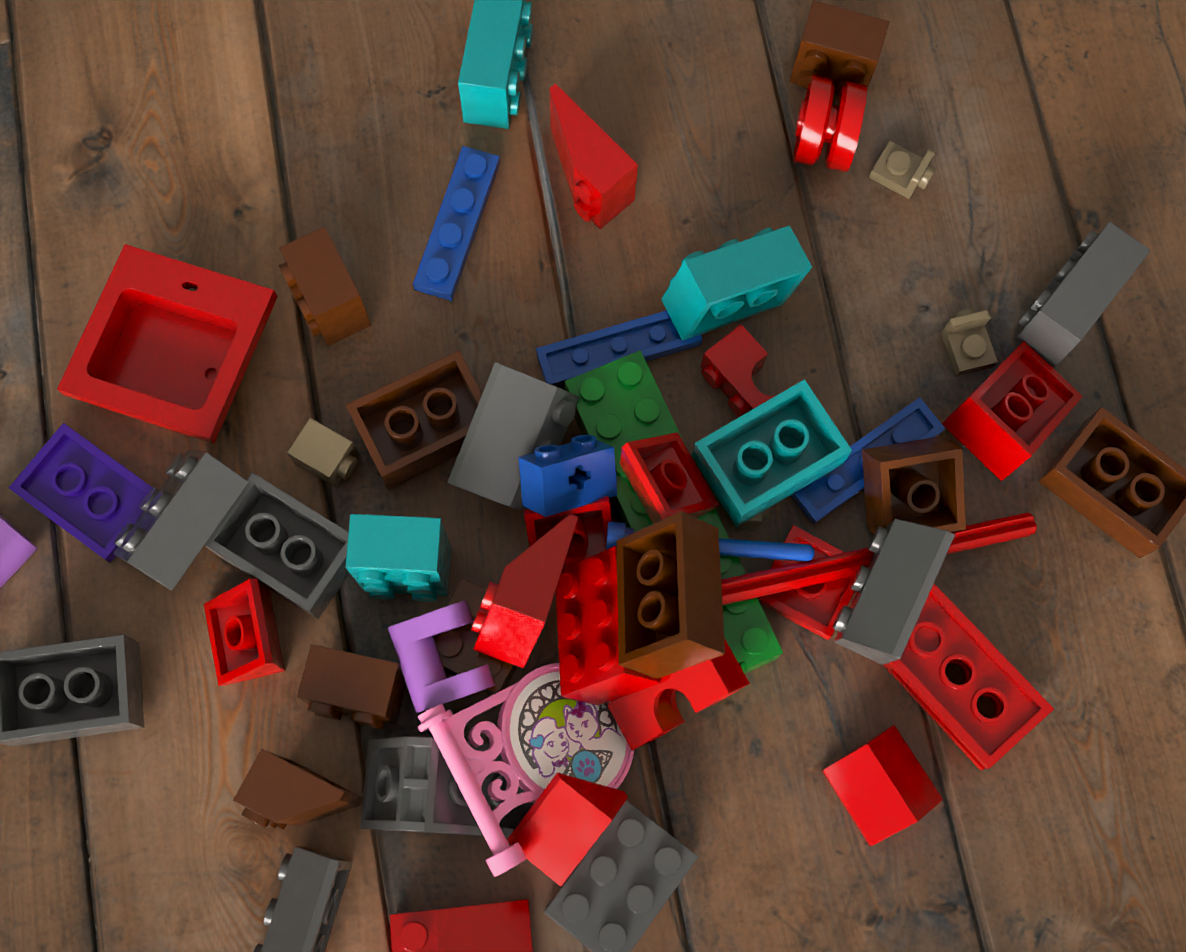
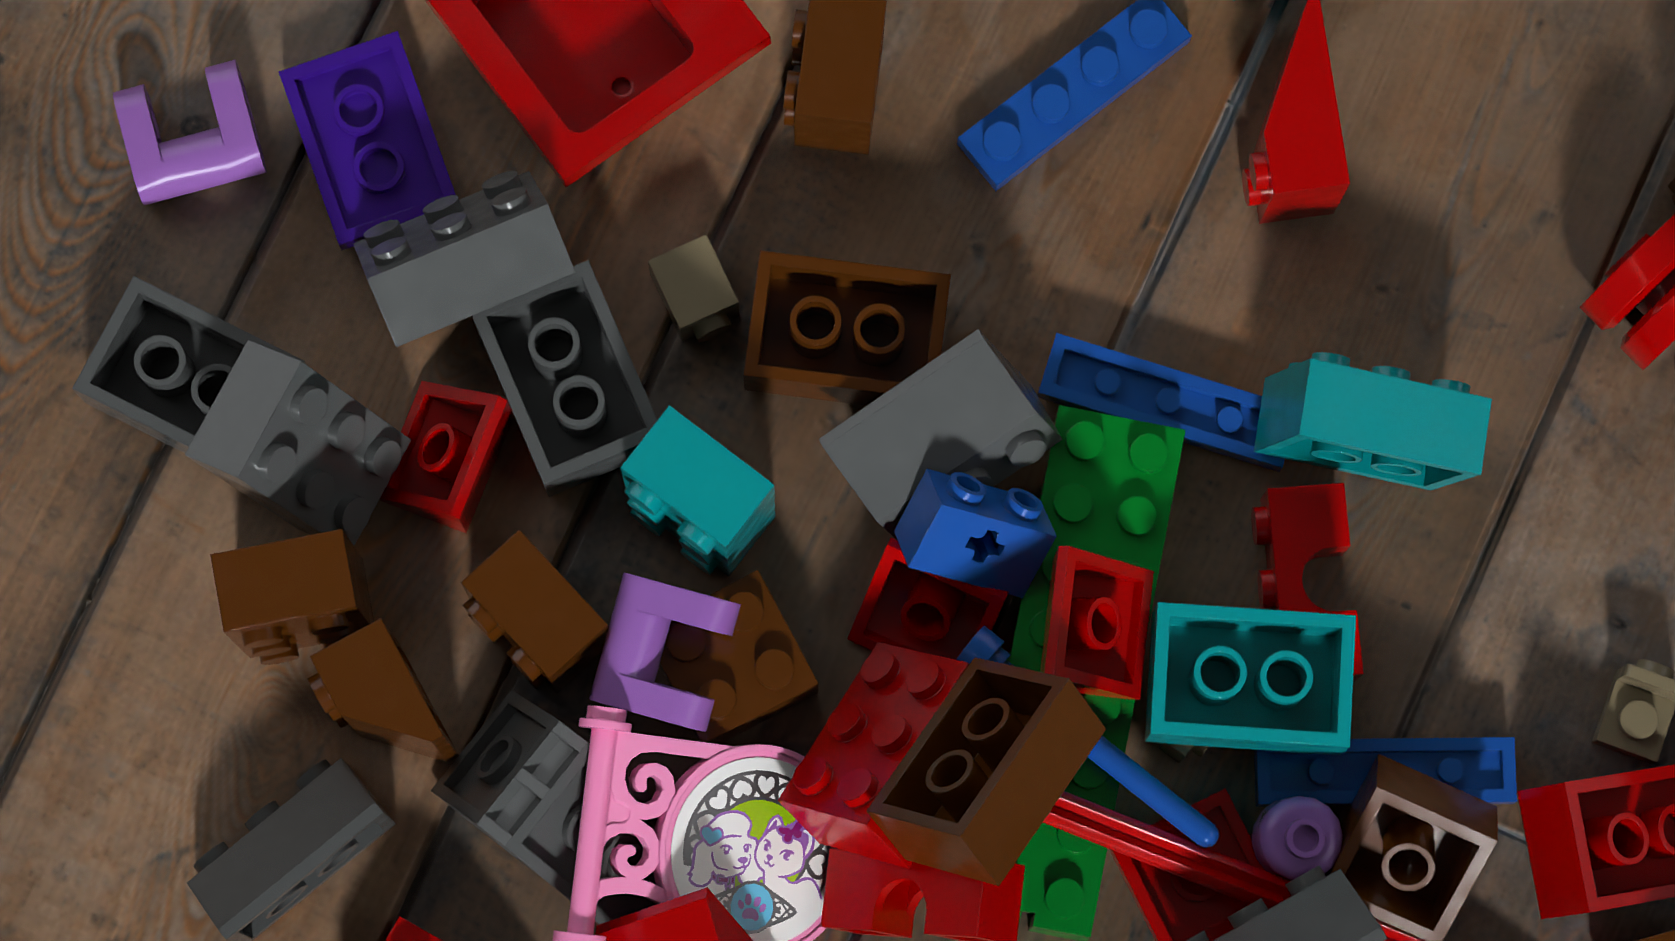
camera: 35 degrees right, 5 degrees up
(149, 684) = (297, 444): none -> dark grey brick
(199, 772) = (292, 594): none -> reddish brown brick
(519, 604) = (798, 654): red slope -> none
(851, 523) = (1296, 837): none -> medium lavender head

